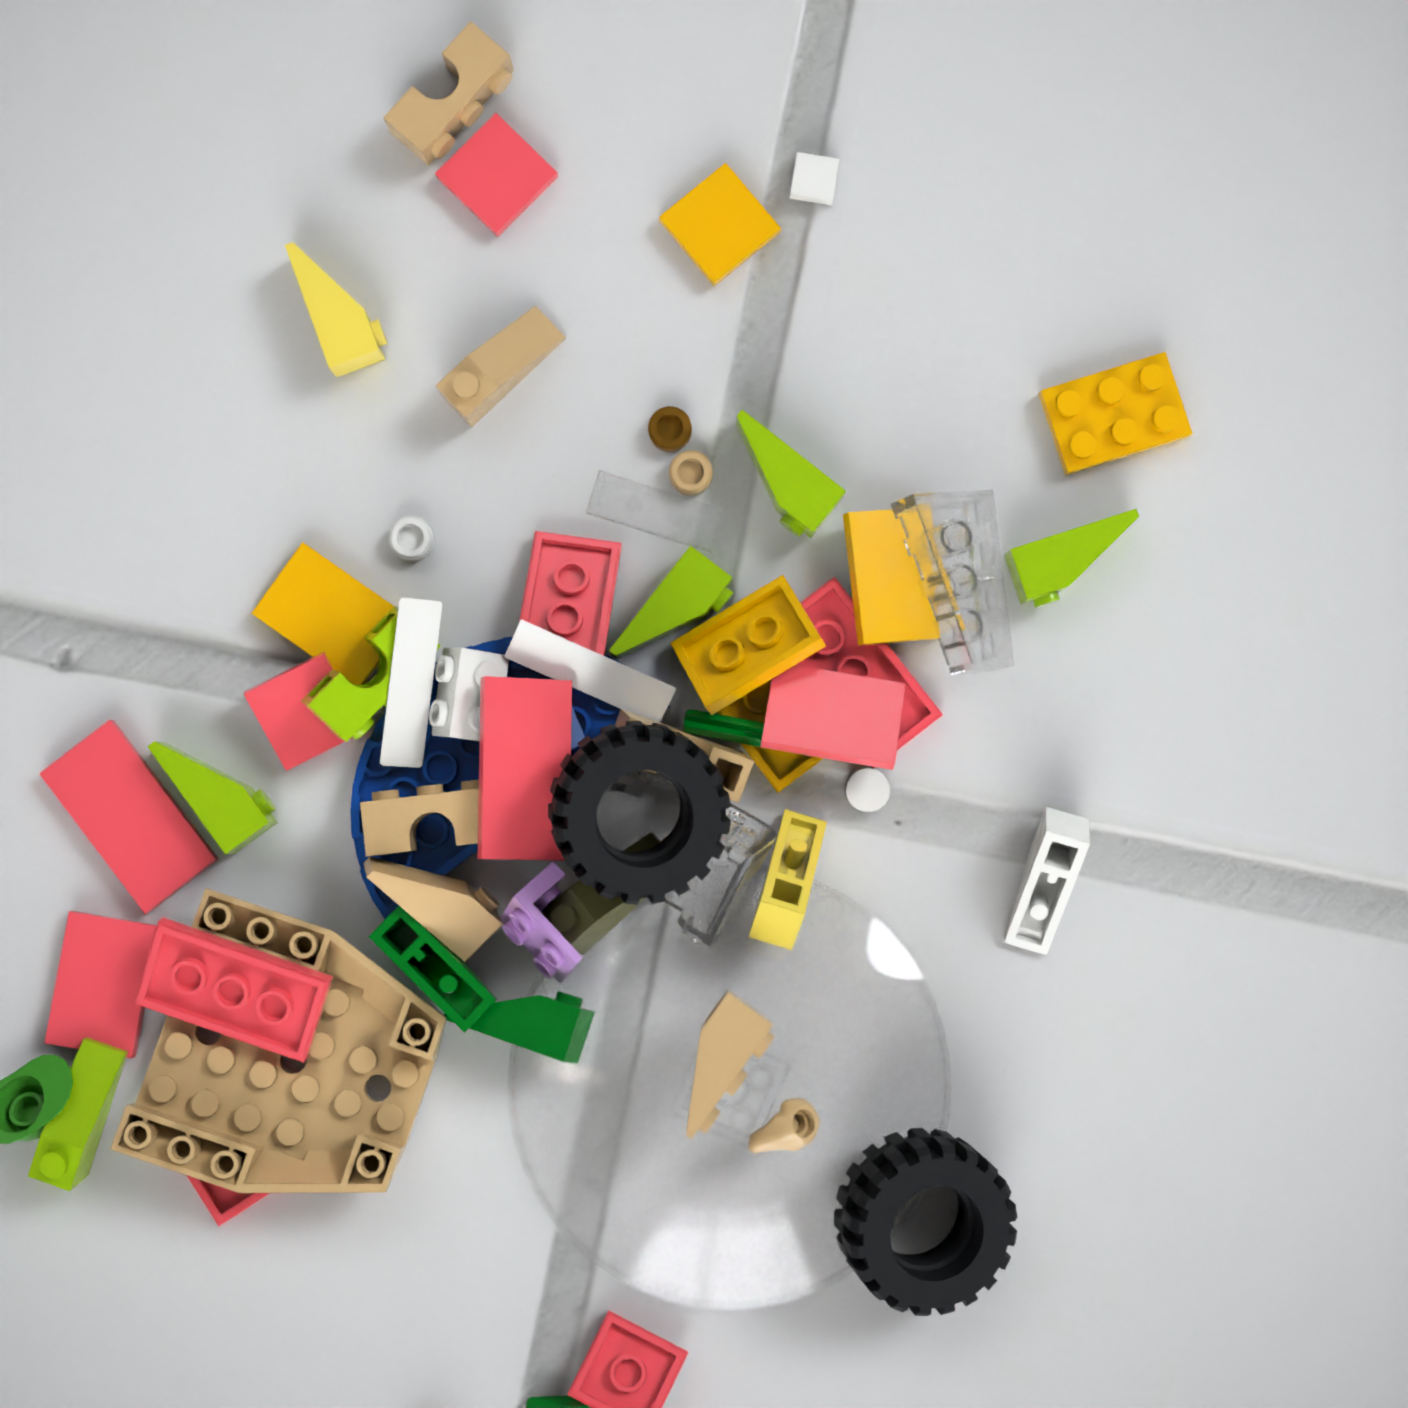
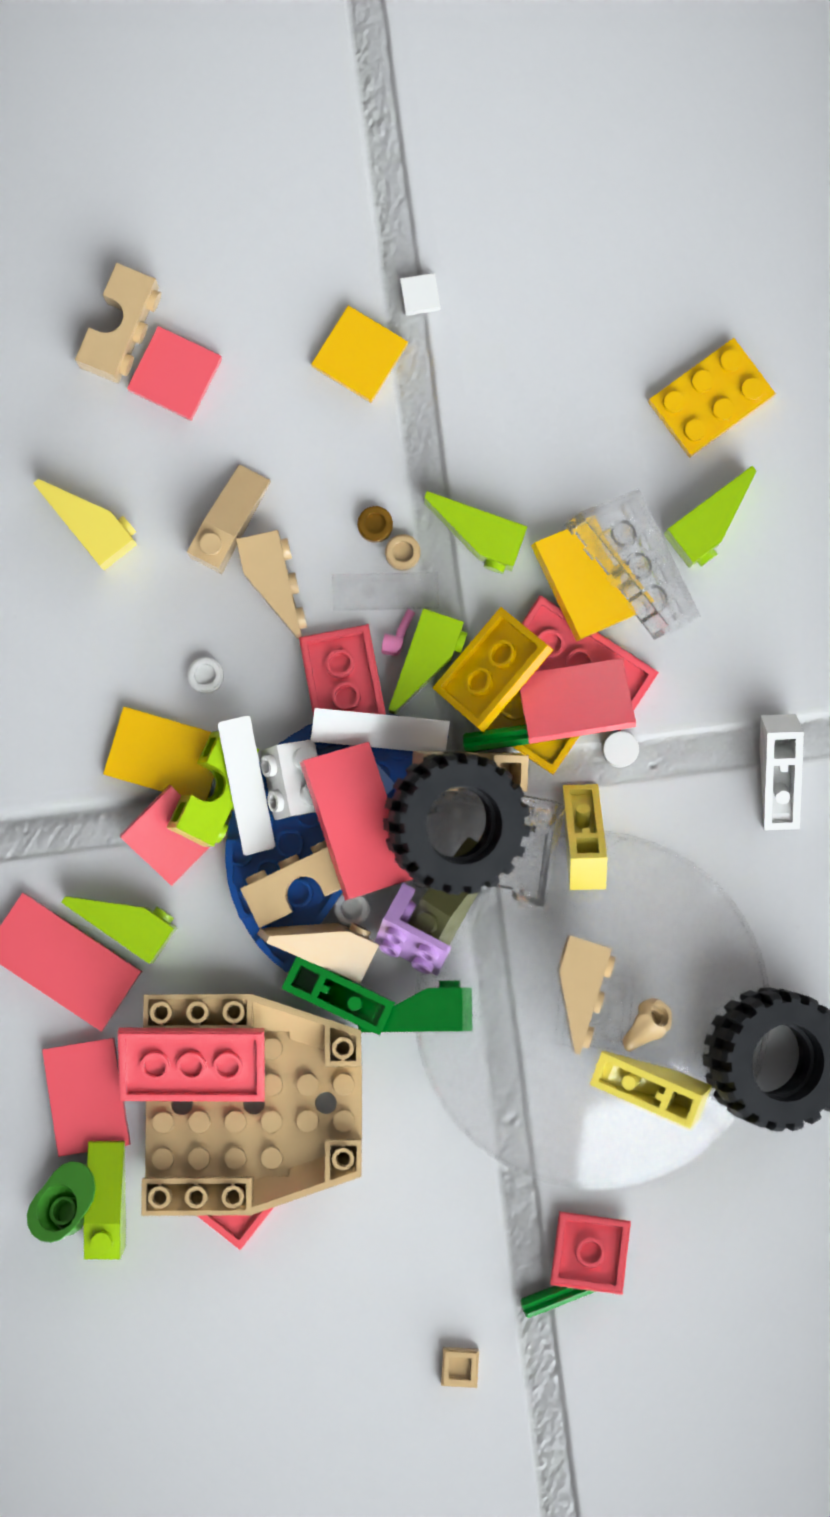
camera: 20 degrees left, 0 degrees up
(487, 873) = (352, 910): none -> white tile
(524, 438) = (266, 570): none -> tan slope
(642, 576) = (393, 644): none -> bright pink hand
(766, 1206) = (652, 1087): none -> light yellow slope

